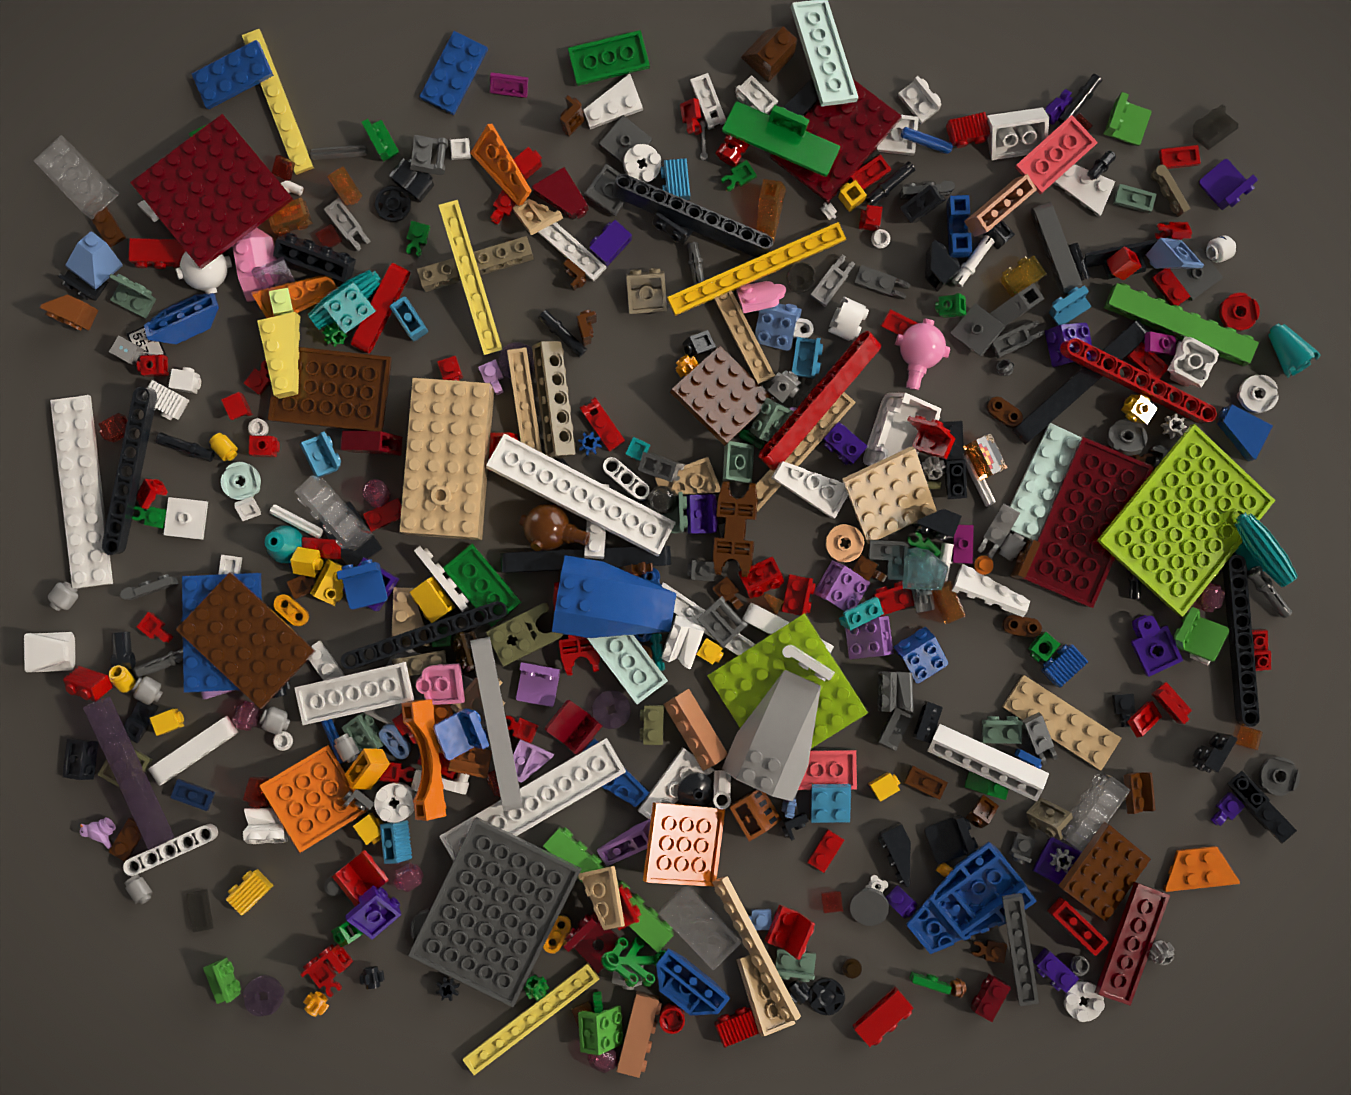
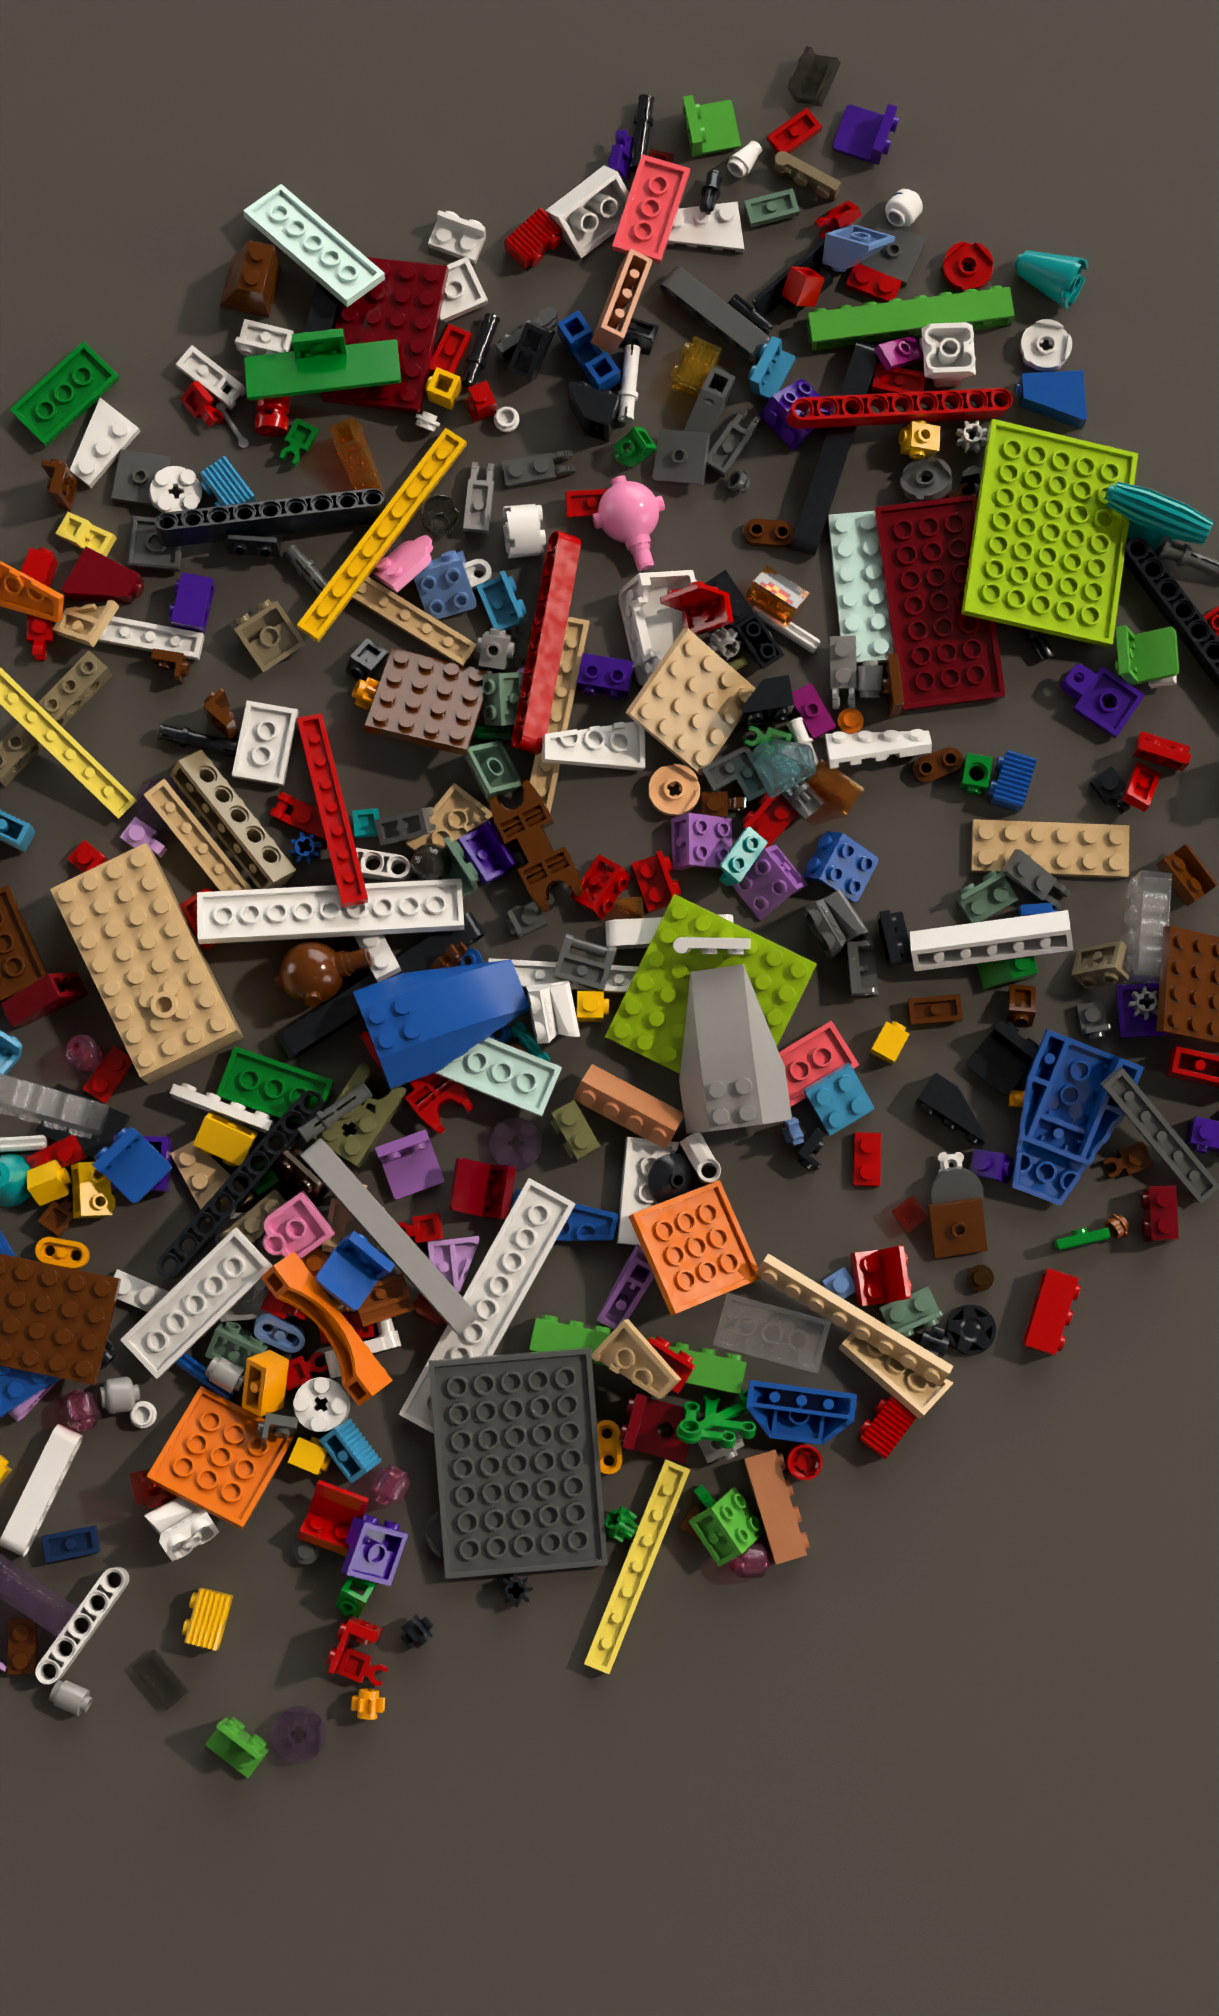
camera: 30 degrees left, 5 degrees down
(484, 628) = (308, 1130): none -> dark grey pin
(569, 158) = (82, 534): none -> light yellow slope
(604, 360) = (265, 743): none -> white plate
(620, 430) = (332, 810): none -> red plate
(728, 590) = (572, 924): reddish brown plate -> none
(755, 813) = (756, 1163): dark orange slope -> none
(857, 929) = (957, 1227): none -> reddish brown plate
(926, 140) = (492, 277): blue axle -> none
(1135, 156) = (743, 160): none -> white cone
(1211, 598) = (1133, 605): clear pink head -> none

